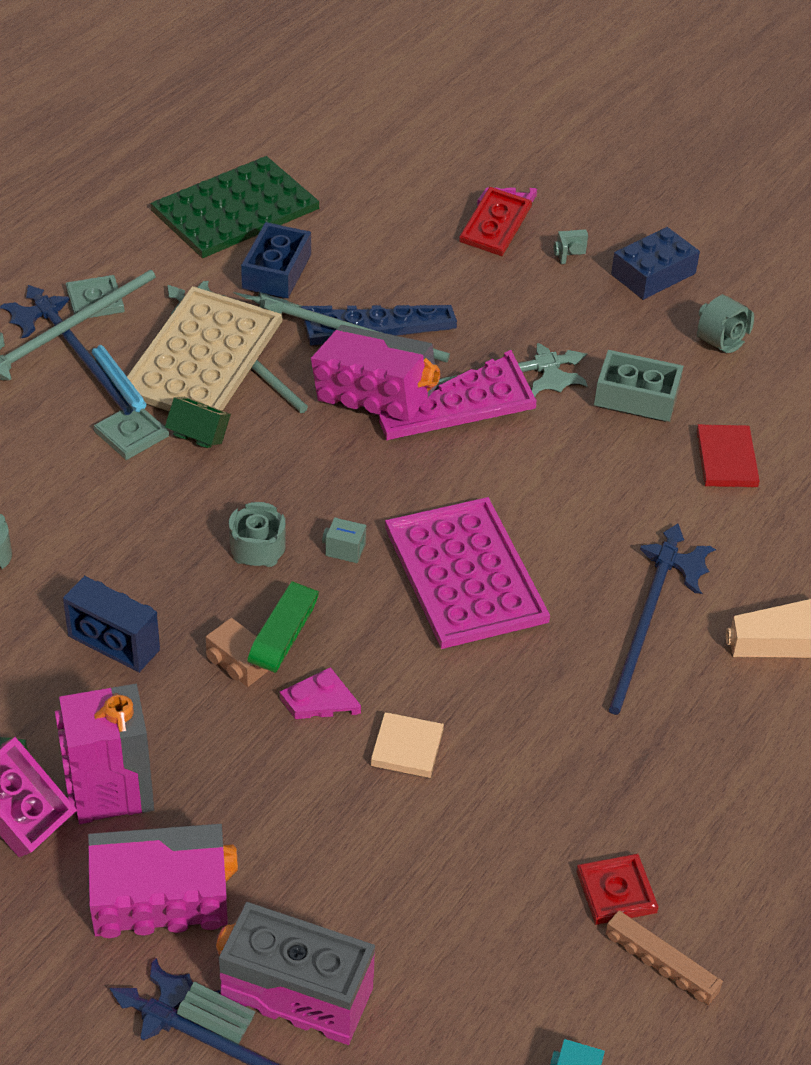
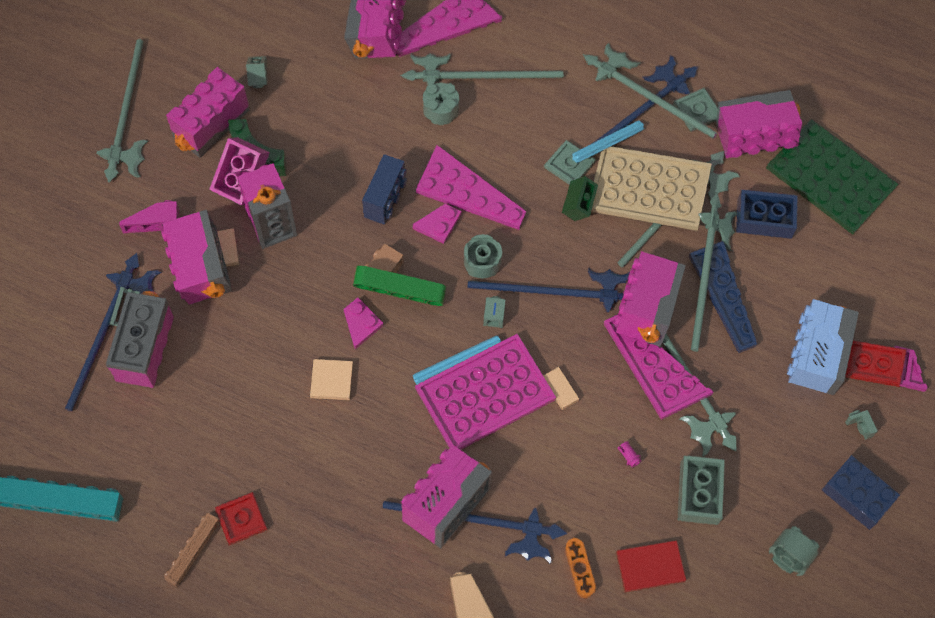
camera: 80 degrees right, 20 degrees up
(54, 938) = (151, 218): none -> dark pink slope
(133, 548) = (458, 186): none -> dark pink wing
(151, 232) = (758, 123): none -> dark pink piece
(181, 582) = (438, 223): none -> dark pink wing
(319, 426) = (607, 295): none -> dark blue piece
(408, 596) = (453, 360): none -> medium azure axle
(471, 247) = (822, 346): none -> light blue piece
(473, 492) = (561, 388): none -> light nougat tile
(578, 445) = (629, 454): none -> dark pink pin
(624, 618) = (446, 495): none -> dark pink piece
(750, 519) = (571, 555): none -> orange beam

